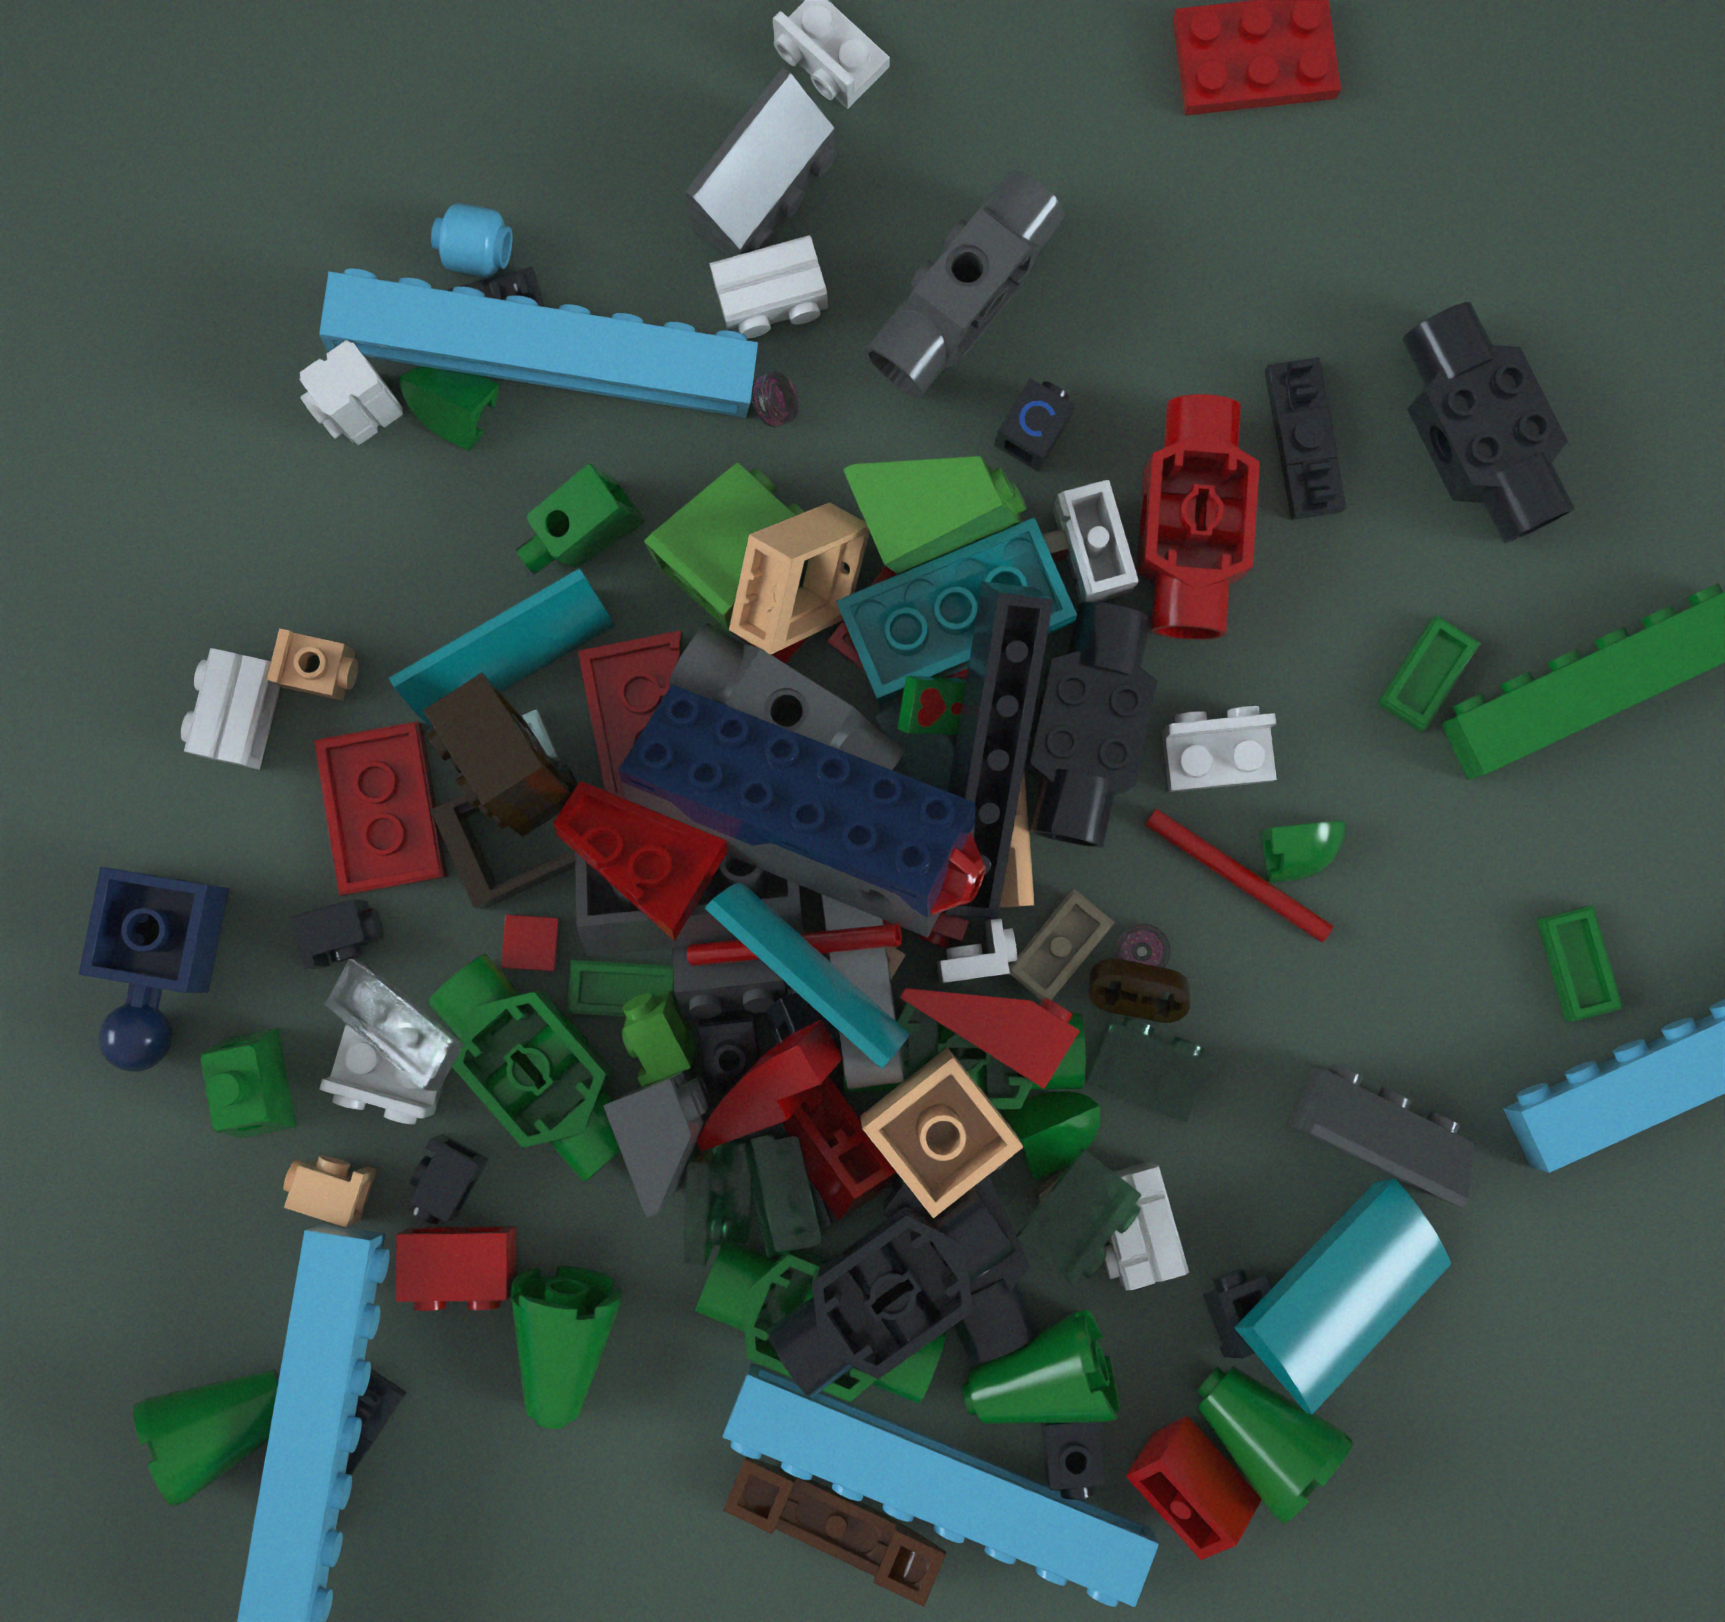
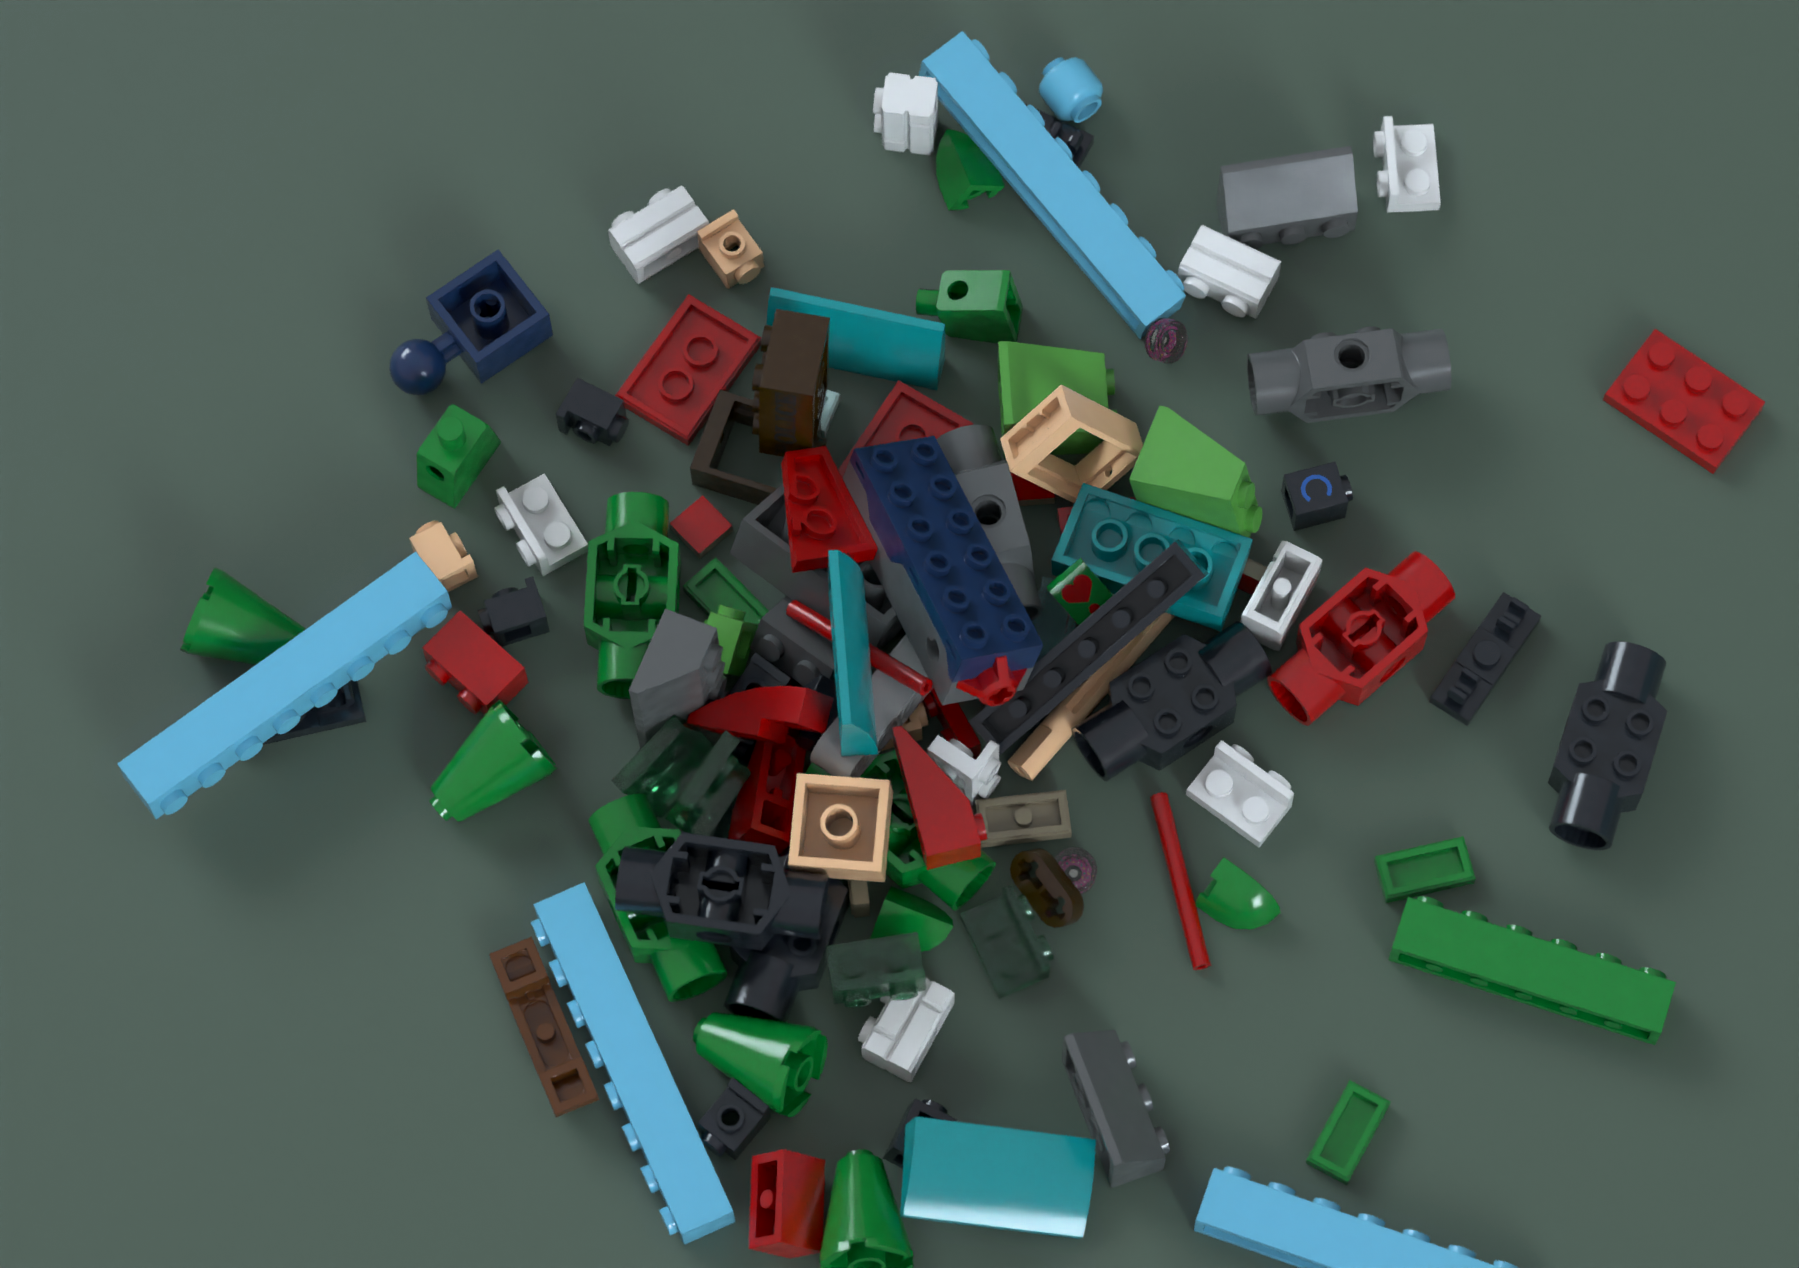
camera: 45 degrees right, 15 degrees down
(394, 1025) = (575, 493): clear plate -> none

